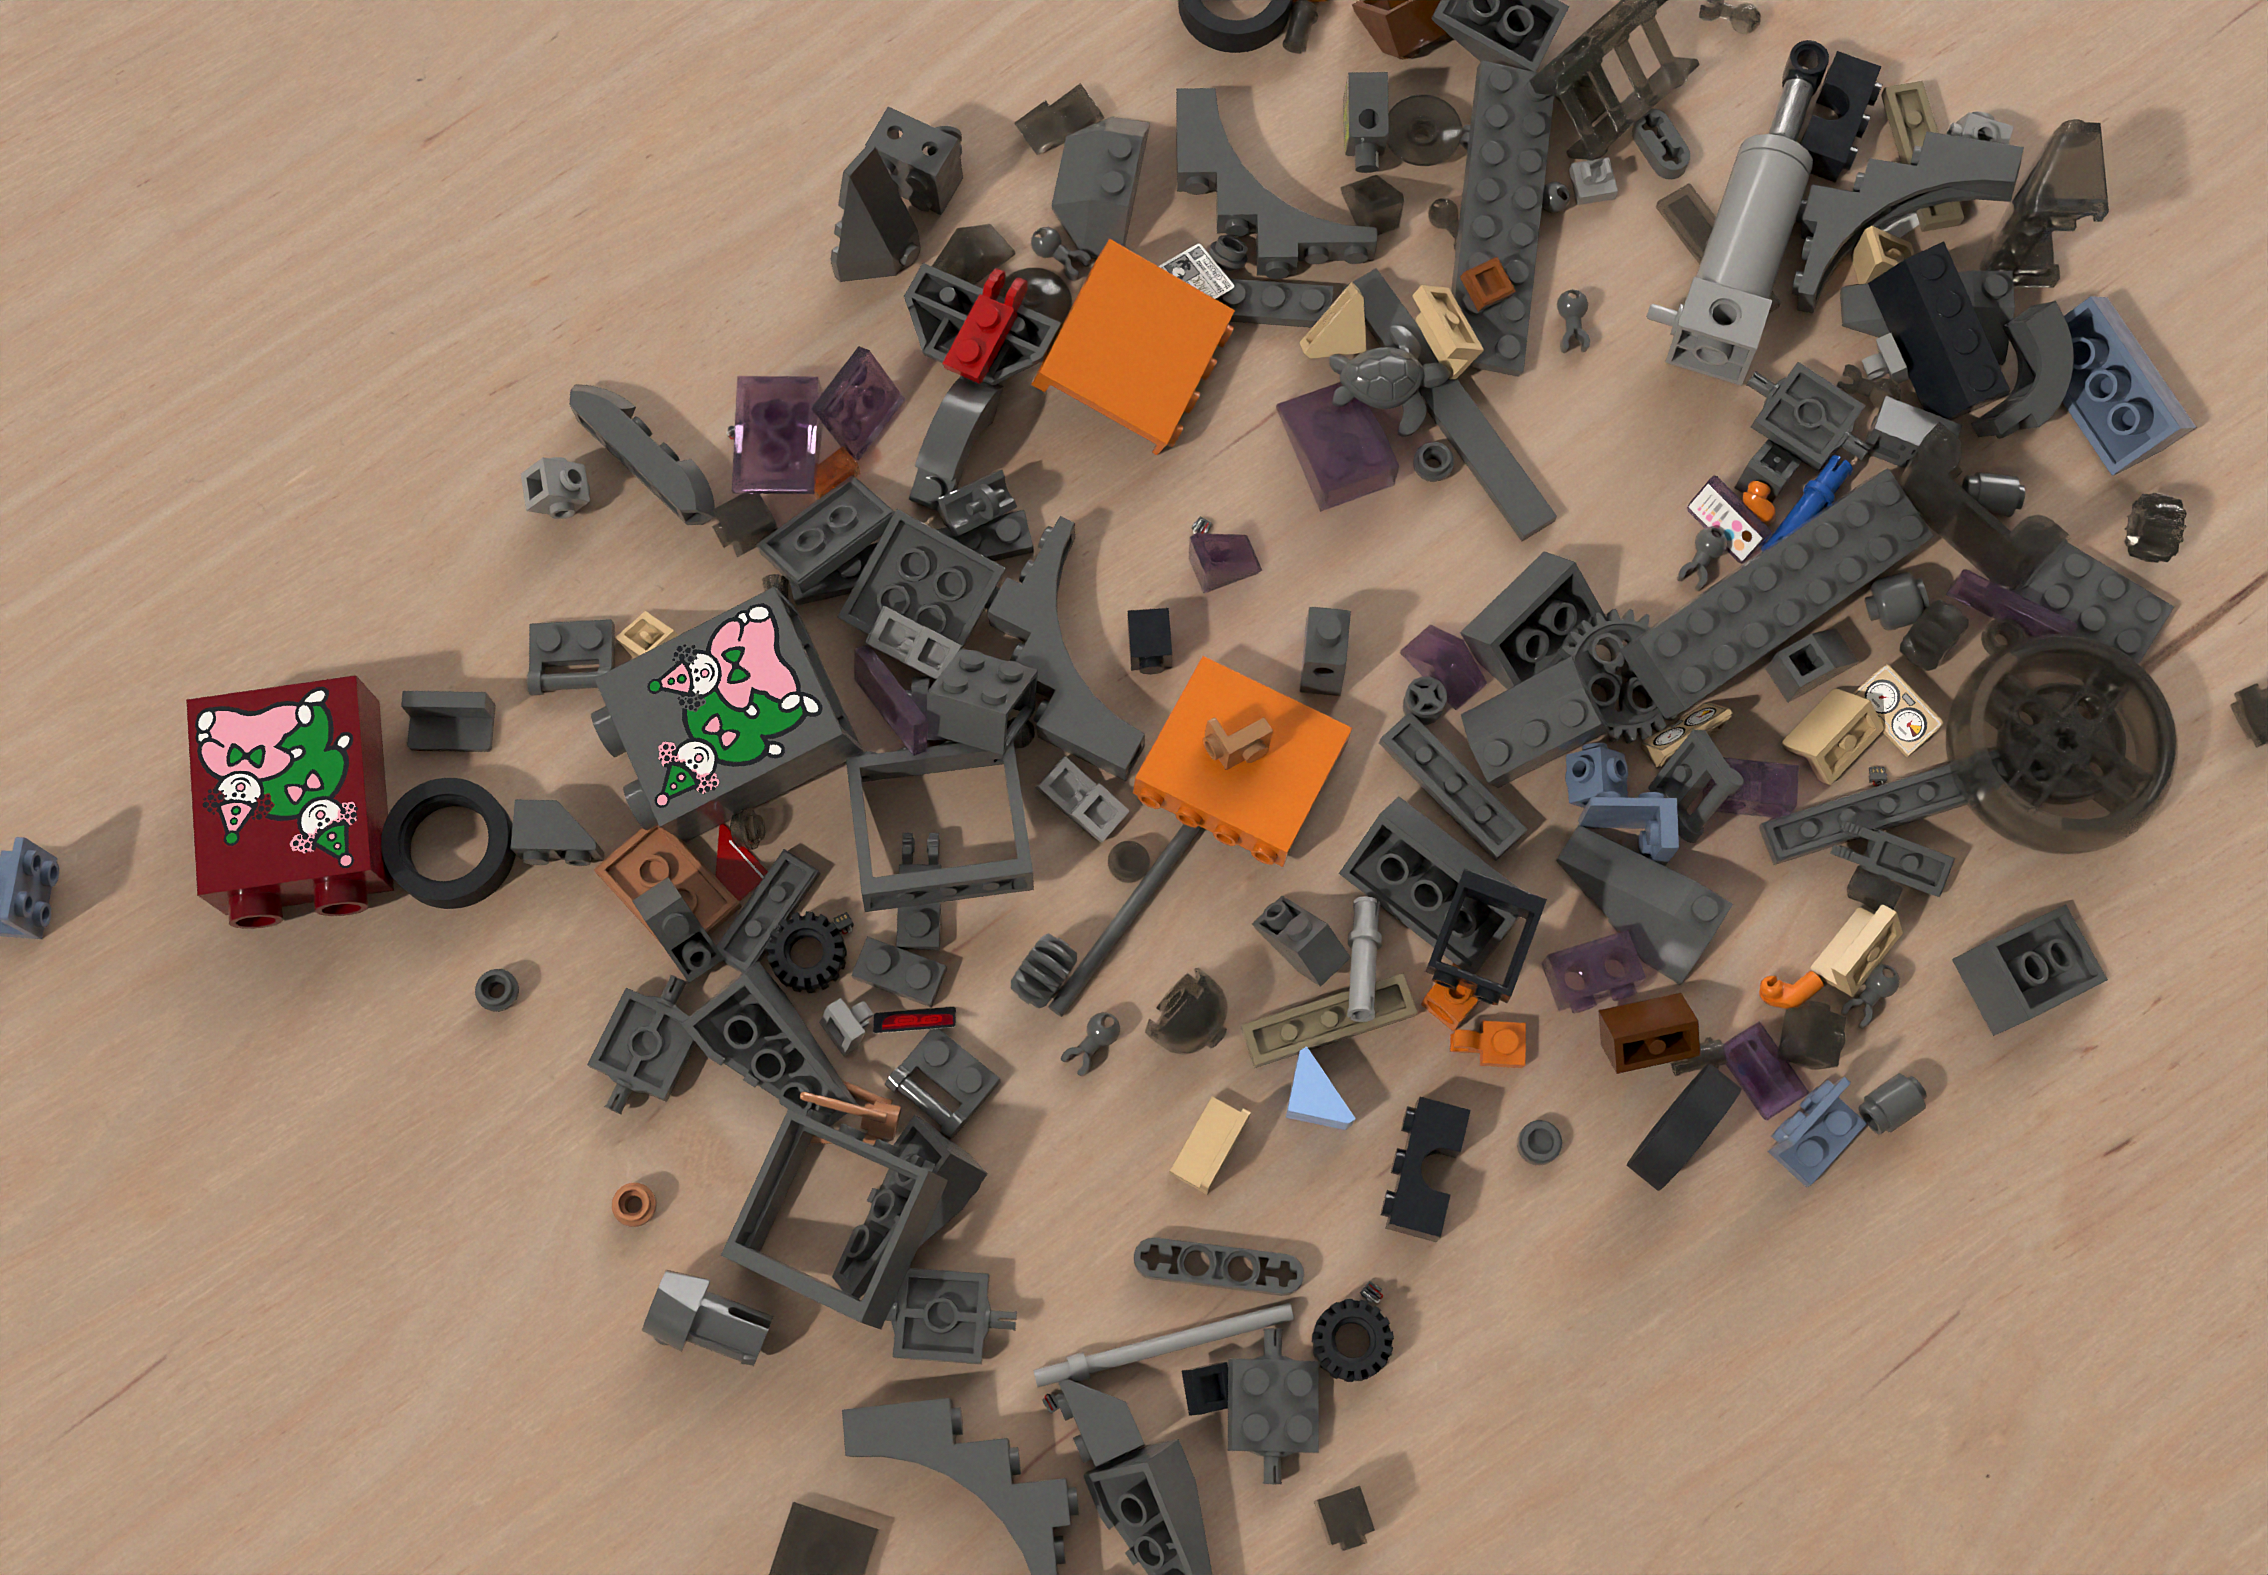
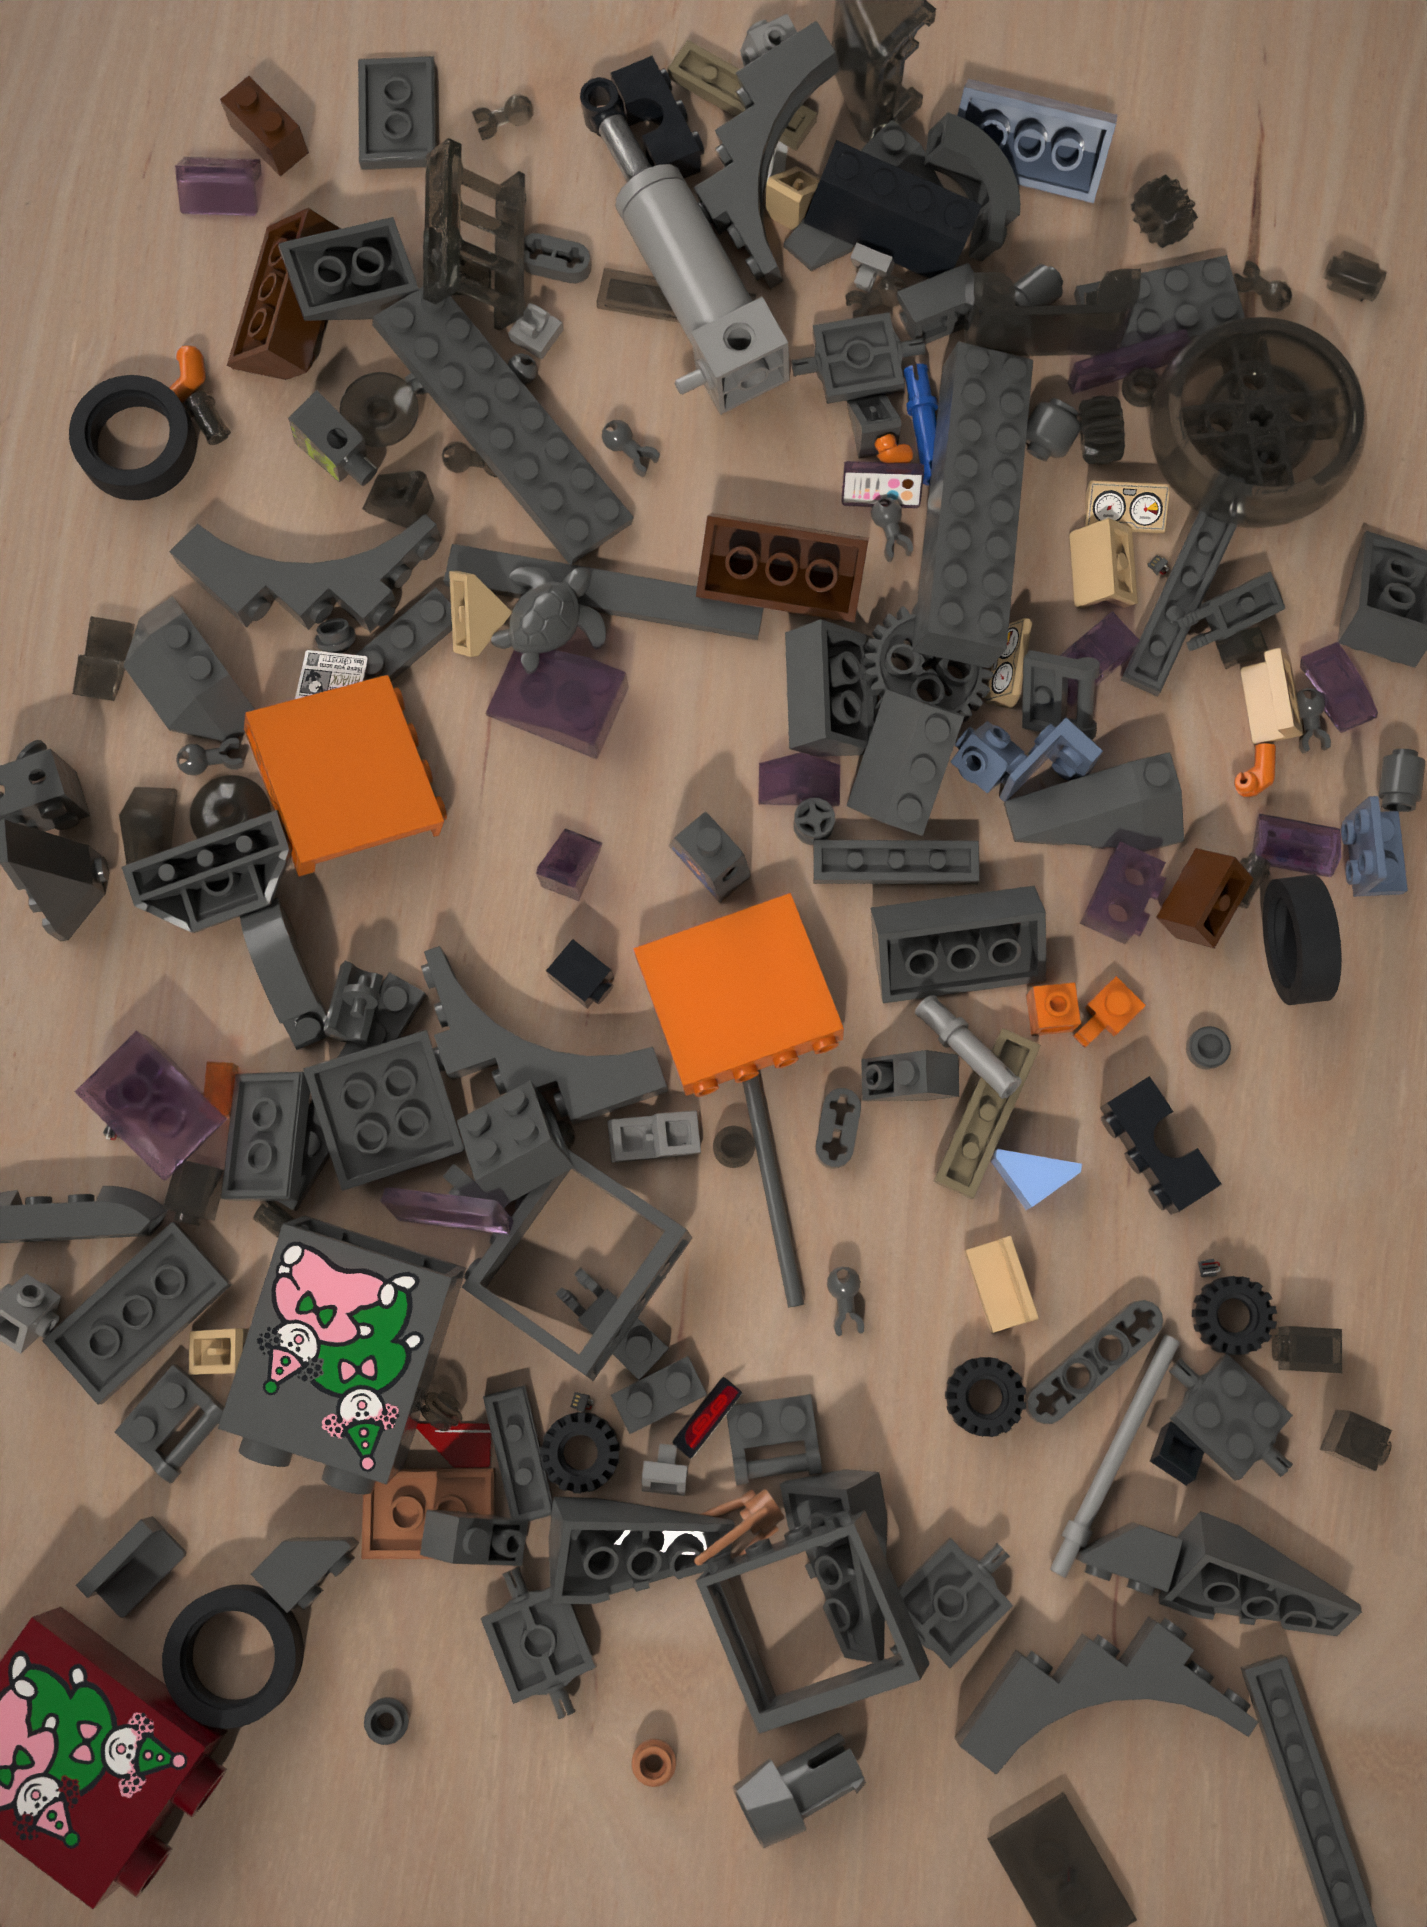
camera: 45 degrees left, 5 degrees up
(625, 563) = (137, 1313): none -> dark grey plate
(858, 403) = (185, 1018): plate -> none
(912, 643) = (418, 1153): light grey slope -> none
(985, 328) = (224, 870): red hinge -> none
(1043, 970) = (763, 1288): dark grey gear -> none
(1050, 1402) = (1082, 1577): dark grey piece -> none
(1116, 1180) = (1009, 1384): none -> black tyre
(1190, 1015) = (895, 1211): clear smoke cylinder -> none
(1201, 526) = (526, 854): dark grey piece -> none
(1208, 915) = (848, 1129): none -> dark grey beam
(1246, 744) = (738, 981): medium nougat bracket -> none
(1379, 1418) = (1308, 1349): none -> clear smoke brick
(1435, 451) = (639, 633): dark grey plate -> none
(1446, 329) = (553, 539): tan panel -> none
(1487, 284) = (548, 478): dark orange tile -> none
(1501, 897) = (1058, 897): black window -> none
(1591, 505) = (781, 567): none -> reddish brown slope
(1810, 663) = (1041, 532): dark grey slope -> none
(1812, 1036) = (1306, 788): clear smoke brick -> none
(1919, 992) = (1342, 687): none -> clear purple slope
(2180, 670) = (1274, 294): none -> clear smoke arm

